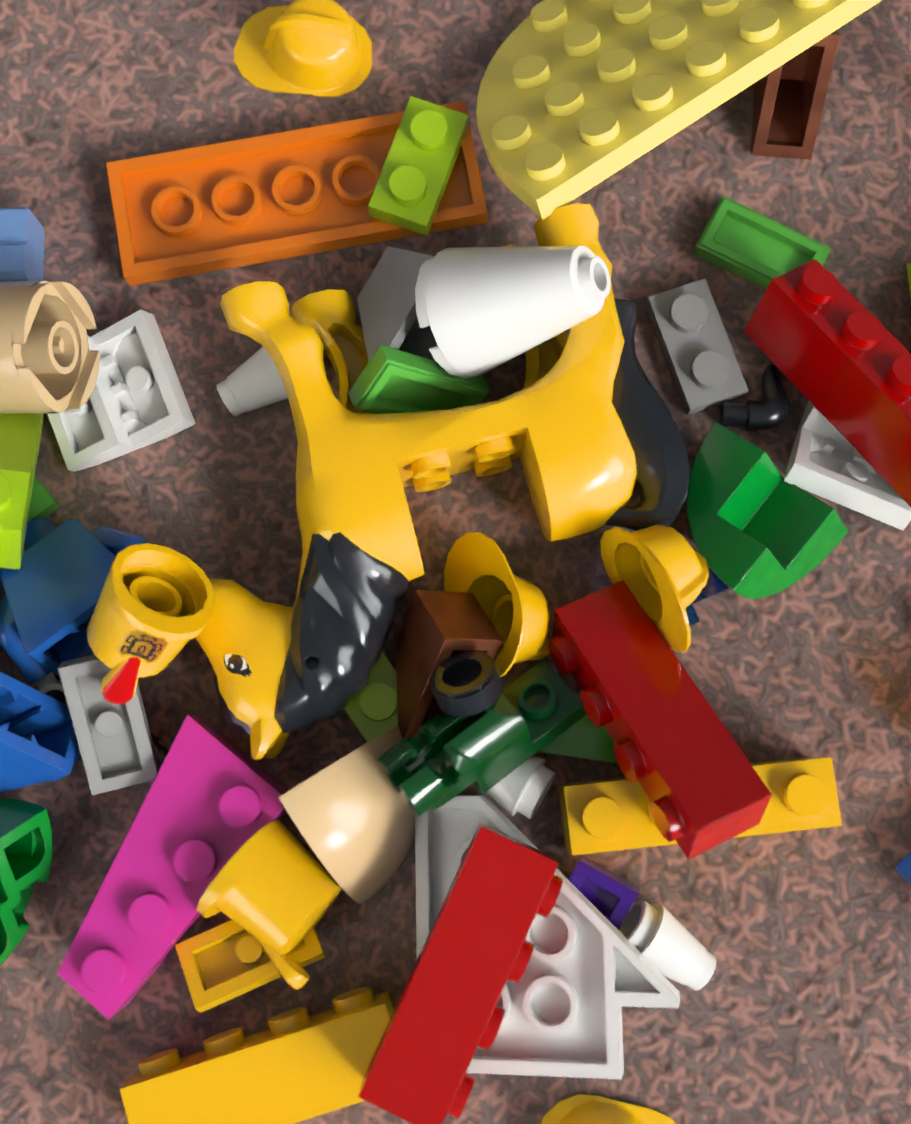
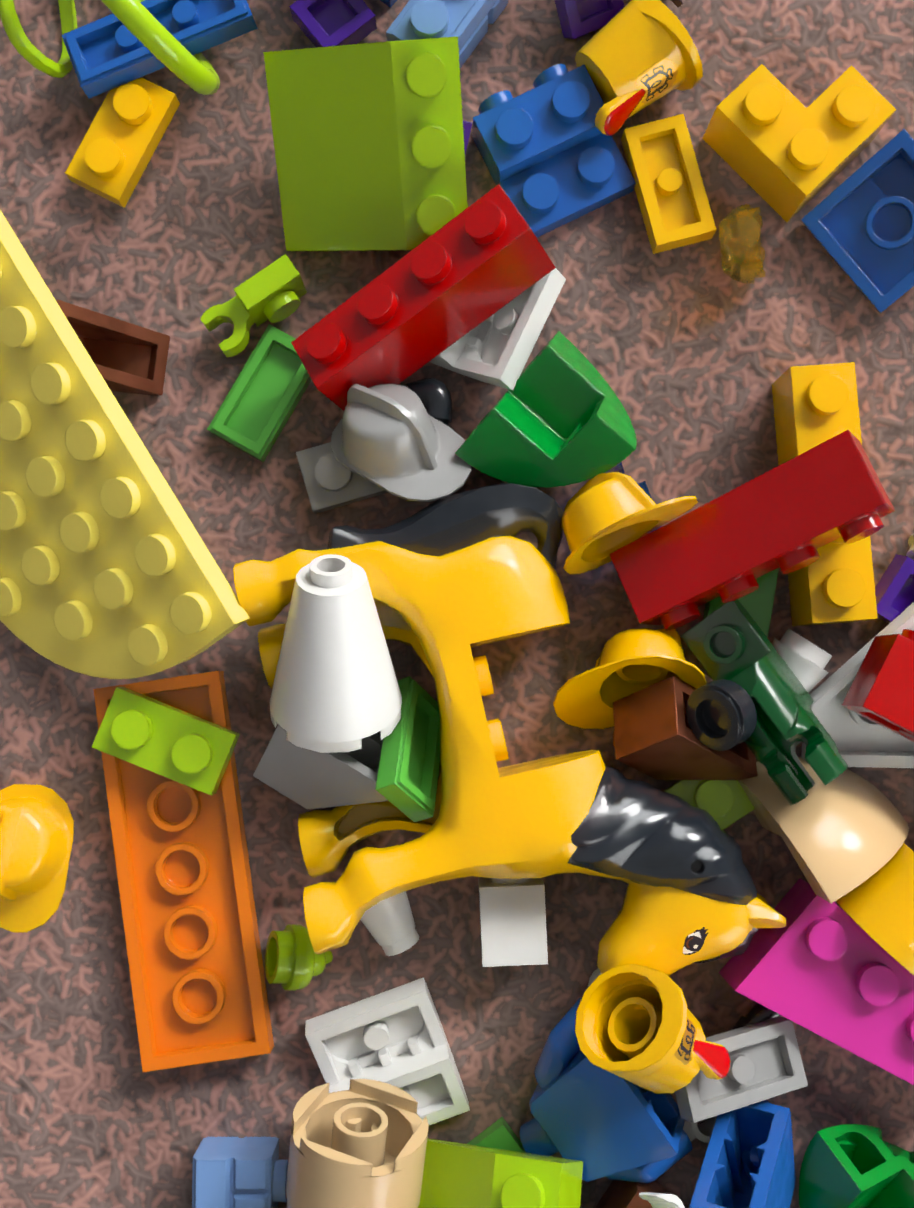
camera: 85 degrees left, 5 degrees up
(204, 299) = (292, 958): none -> lime plate
(252, 501) = (512, 922): none -> white brick
(721, 369) = (398, 444): none -> light grey piece
(857, 238) = (266, 296): none -> lime plate

